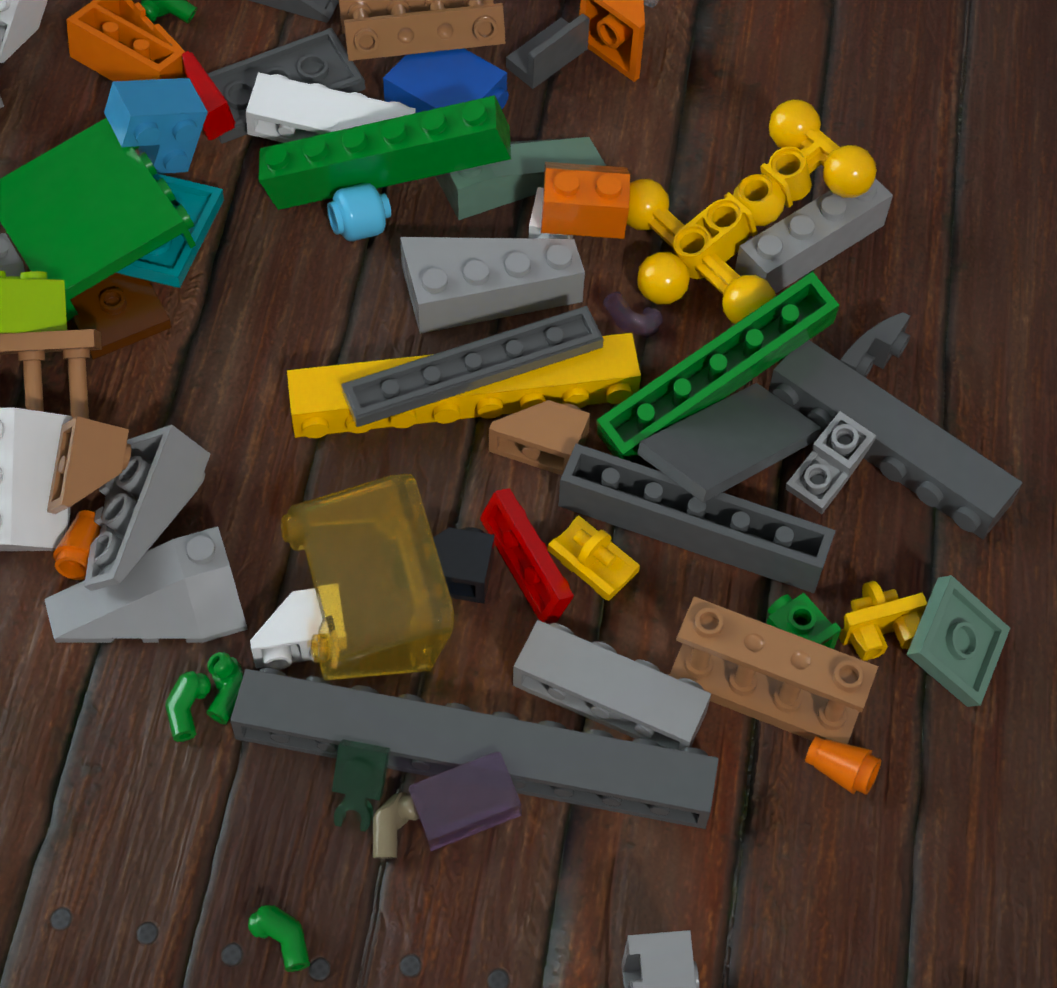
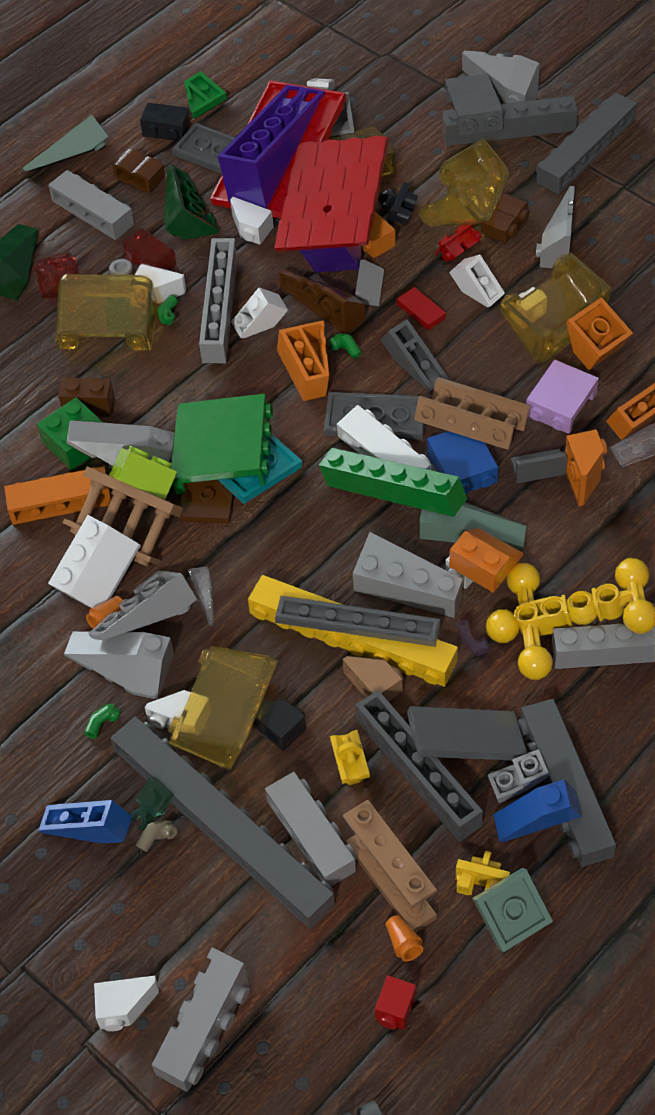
camera: 40 degrees right, 5 degrees down
(86, 459) = (131, 571): medium nougat slope -> none
(159, 118) = (288, 406): dark azure brick -> none
(205, 430) = (202, 586): none -> clear slope
(219, 116) = (324, 409): red slope -> none
(227, 677) = (130, 712): green arm -> none
(275, 866) = (87, 821): none -> blue slope
(284, 929) = (70, 854): green arm -> none
(358, 212) = (363, 507): medium azure head -> none
(465, 800) = (193, 842): clear purple panel -> none
(526, 556) = (318, 737): red plate -> none
(720, 366) = (490, 688): green brick -> none
(814, 623) = (434, 864): green brick -> none
(878, 345) = (601, 725): dark grey slope -> none
(896, 494) = (538, 811): none -> blue slope
(902, 858) = (395, 1003): none -> red brick

